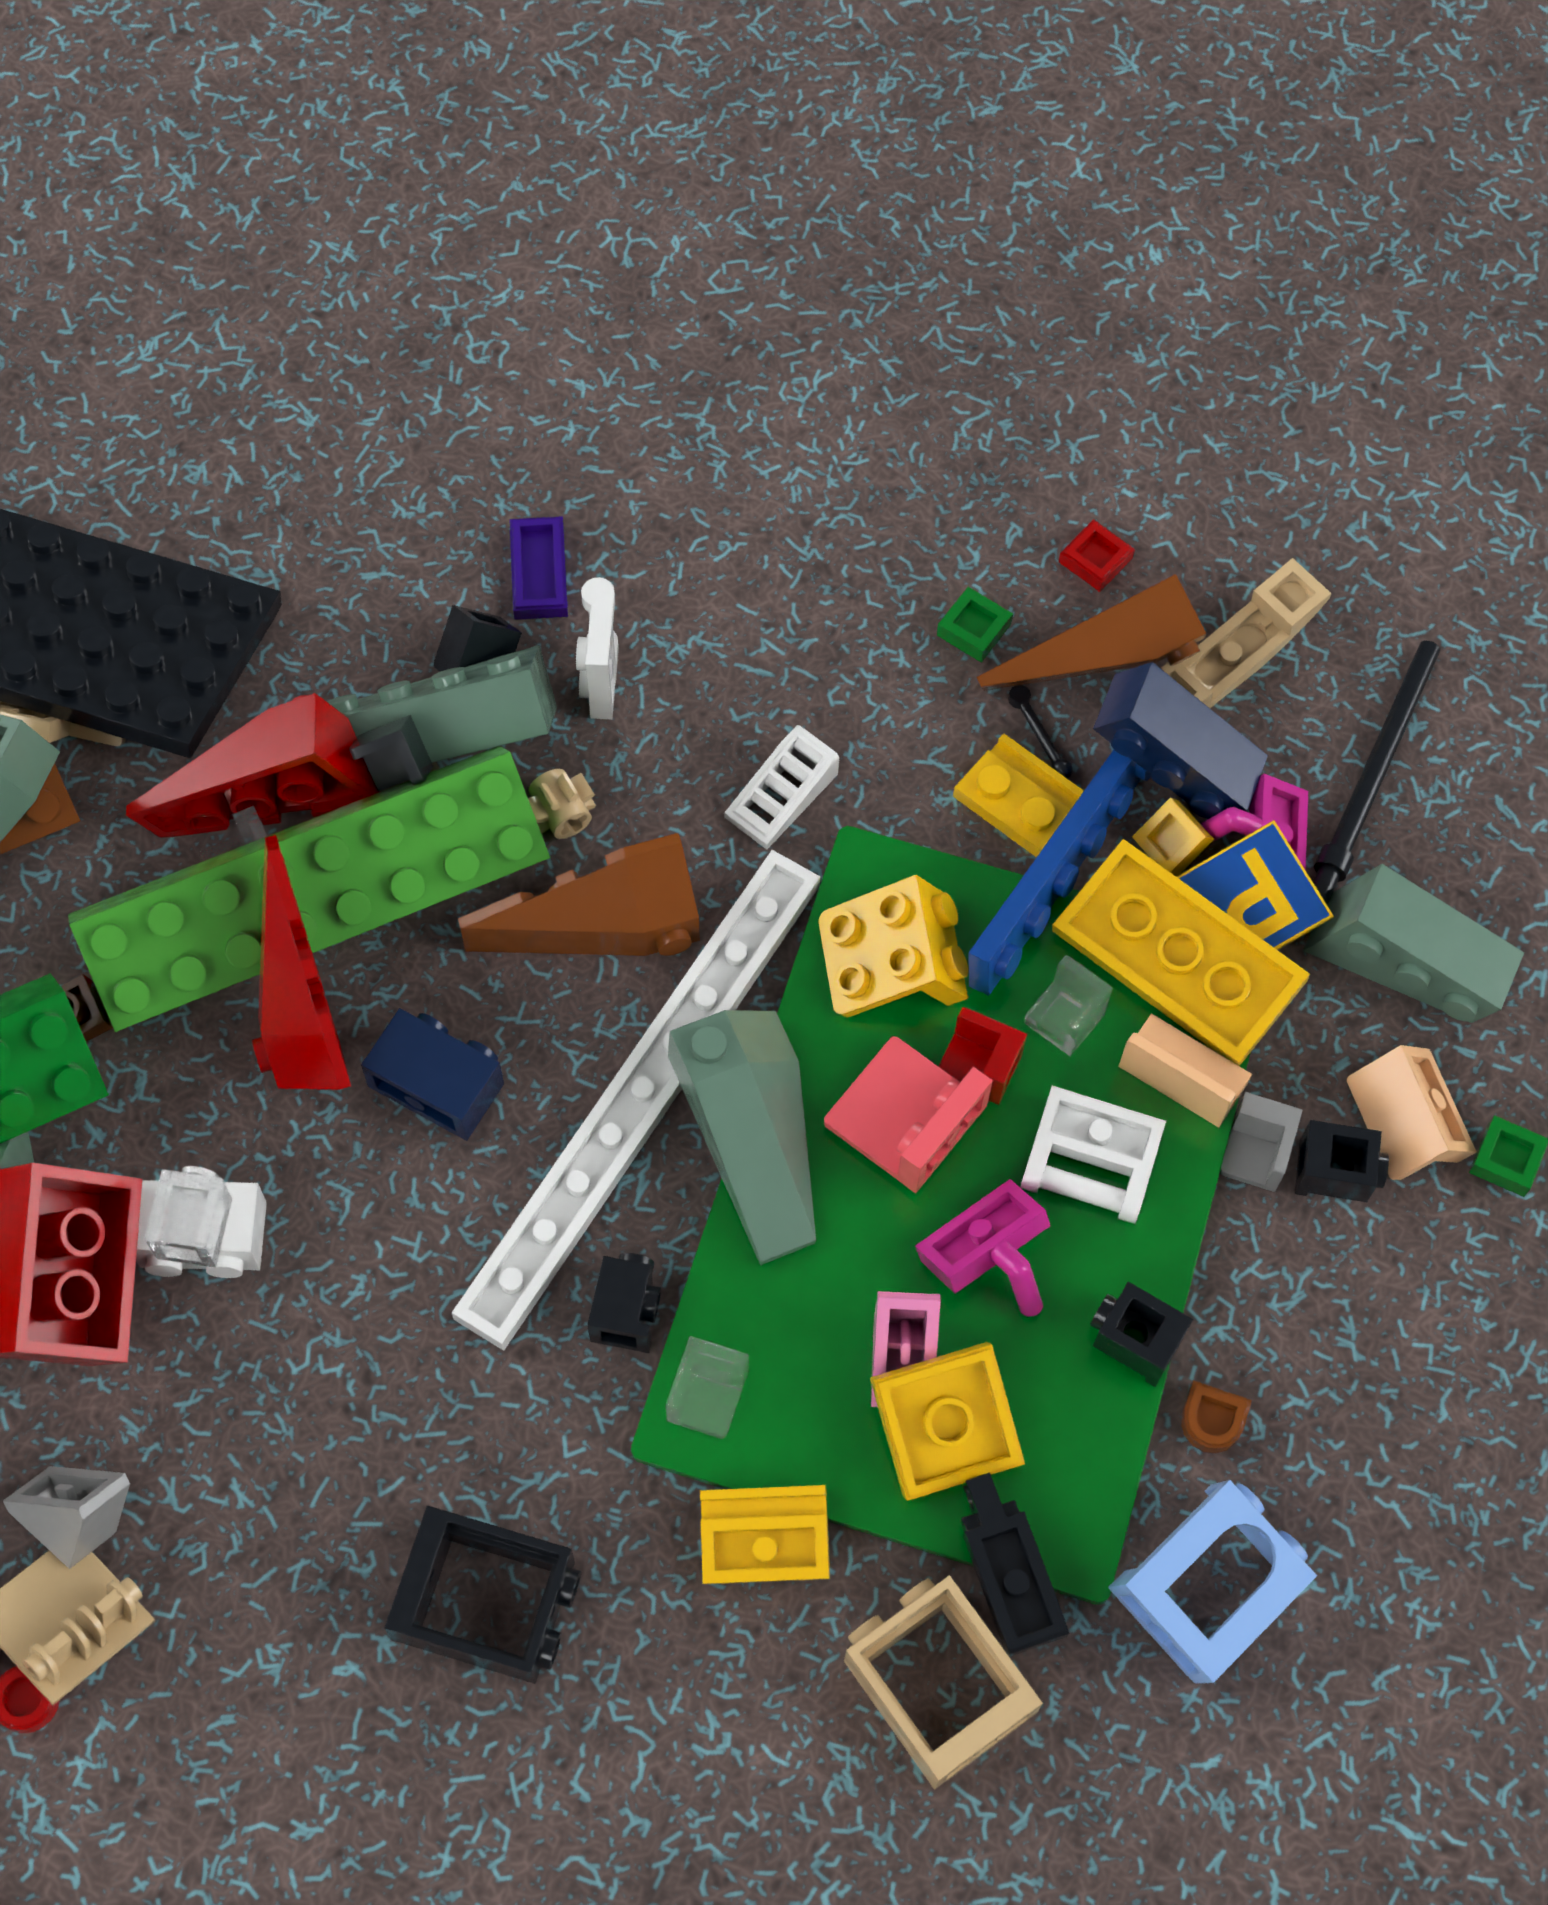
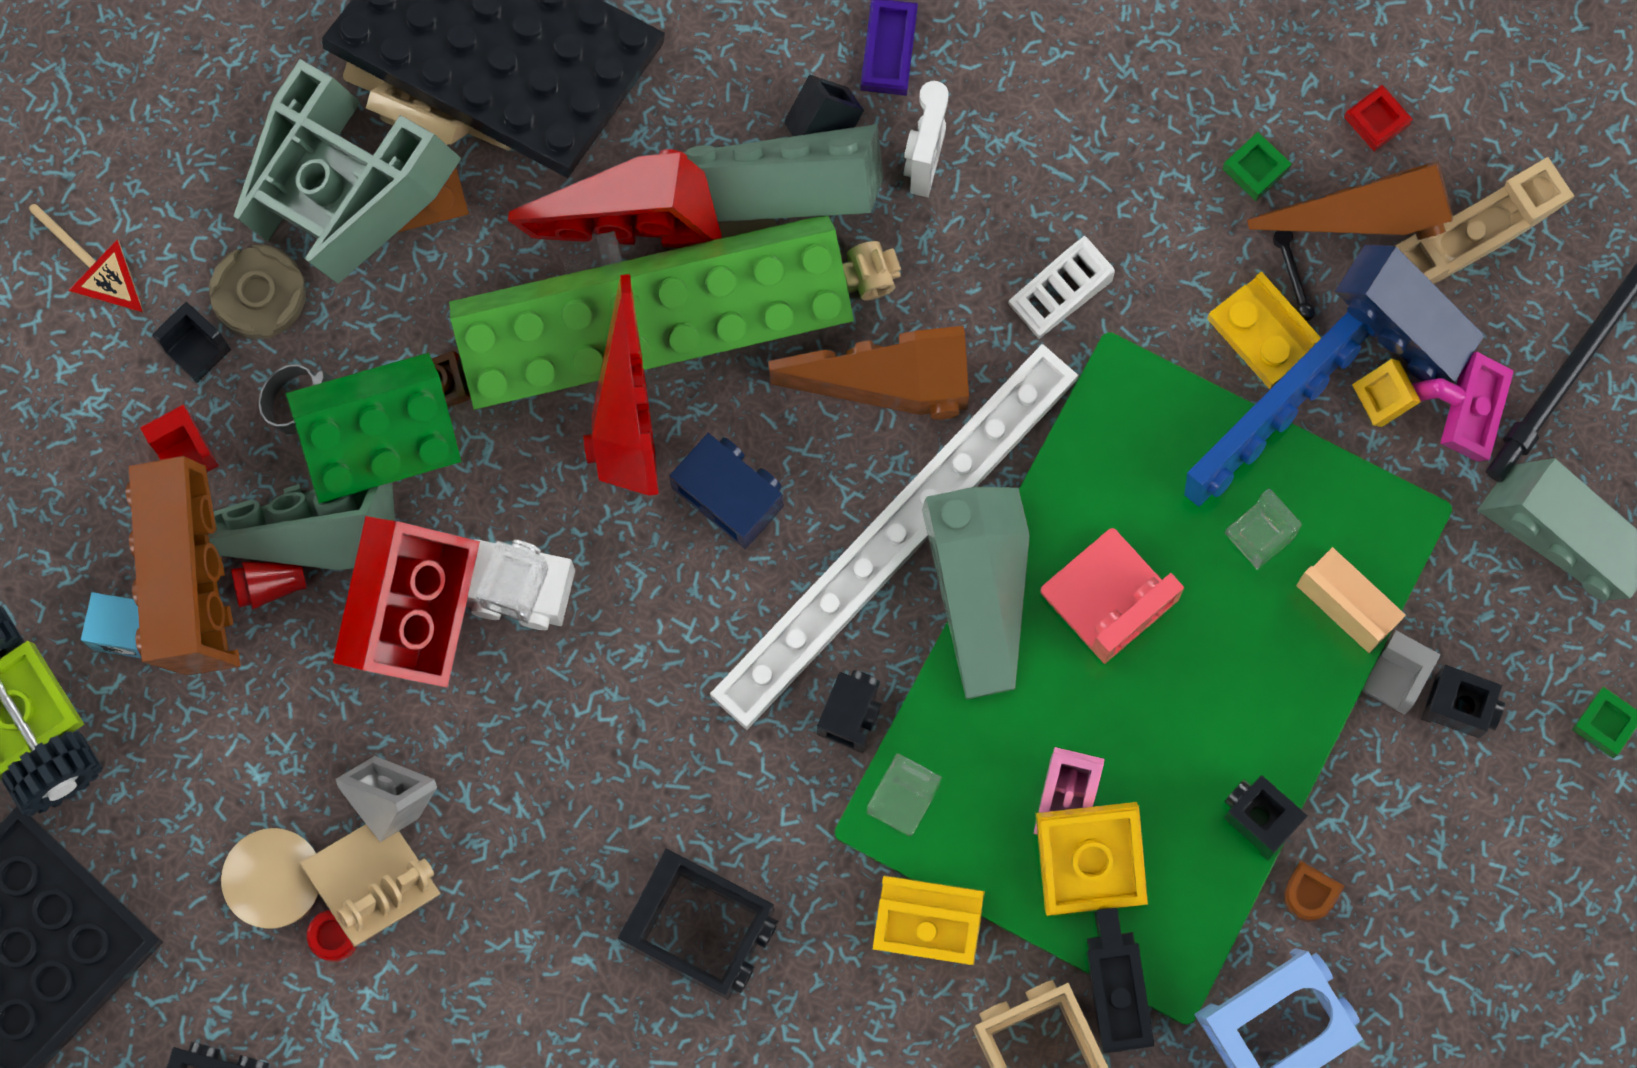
camera: 15 degrees right, 10 degrees up
(393, 753) = (737, 208): black panel -> none
(893, 947) = (1127, 451): yellow bracket -> none
(987, 1047) = (1184, 555): red panel -> none
(988, 1237) = (1155, 714): dark pink plate -> none
(1098, 1136) = (1264, 644): white plate -> none
(1180, 952) = (1368, 499): yellow plate -> none
(1262, 887) = (1442, 461): blue piece -> none
(1413, 1110) = (1534, 668): light nougat panel -> none

